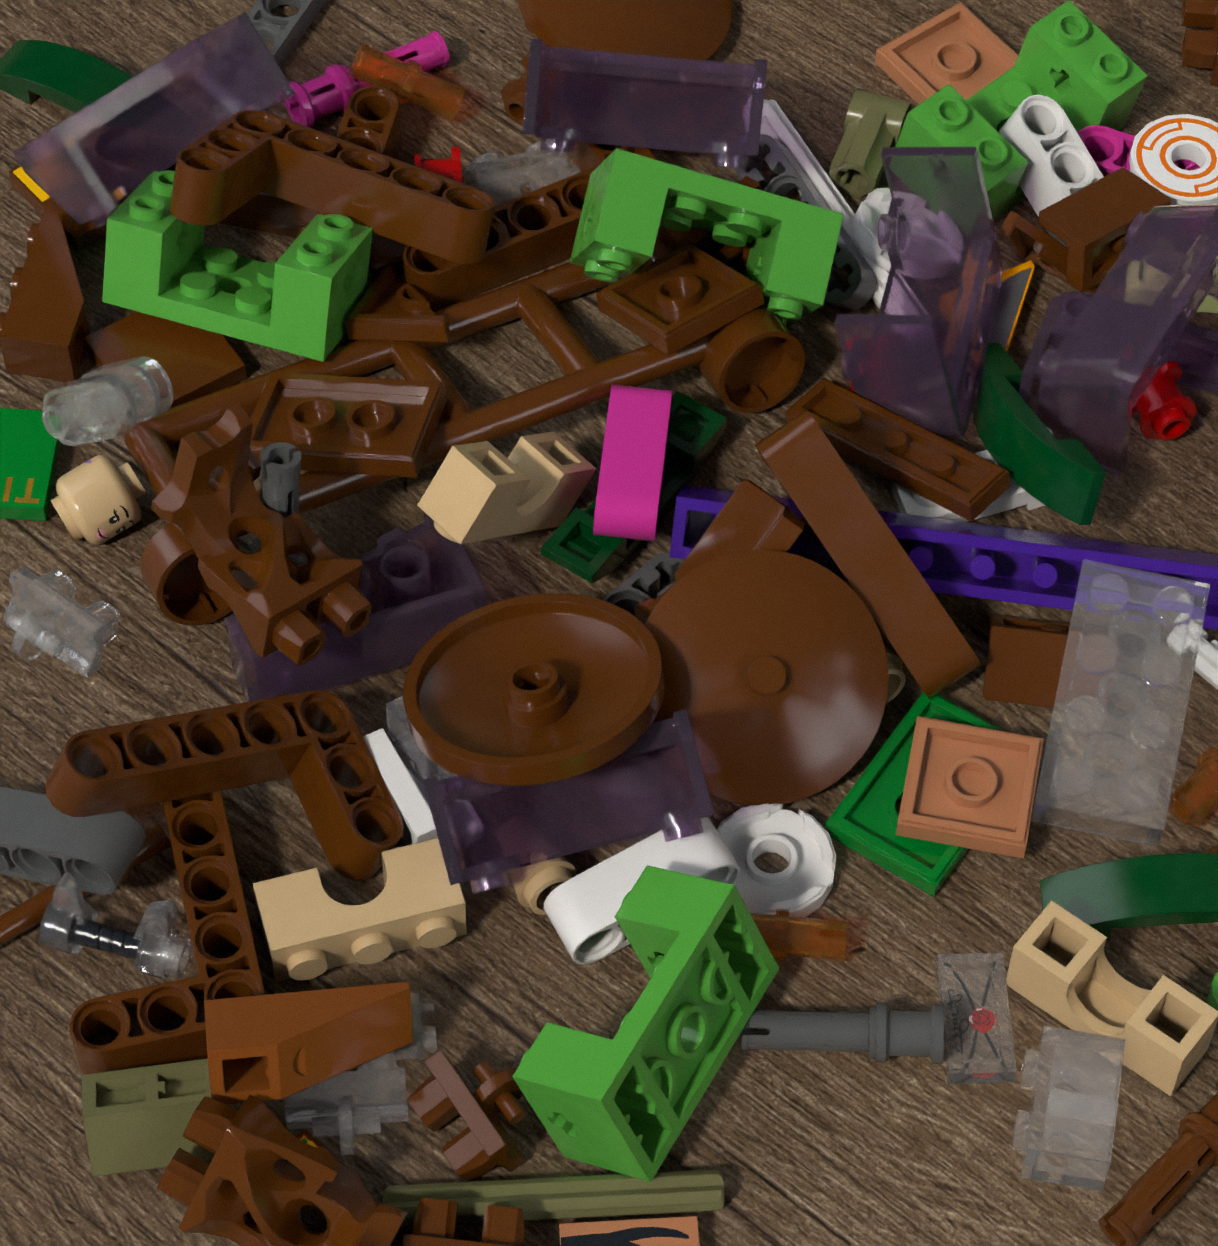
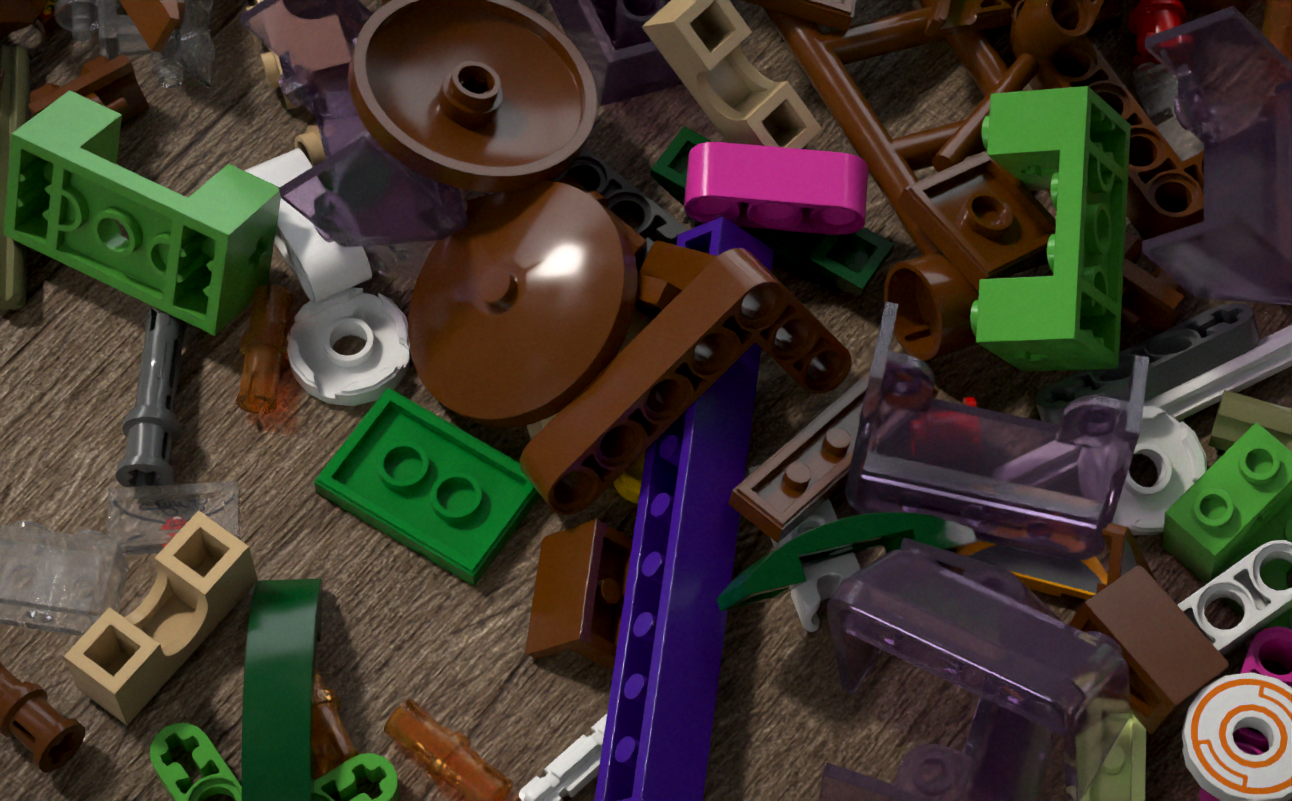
camera: 90 degrees right, 5 degrees up
(545, 301) = (970, 131): none -> reddish brown bar
(970, 787) = (417, 507): nougat tile -> none
(1120, 703) = (493, 629): clear brick -> none
(1163, 407) = (924, 718): red brick -> none

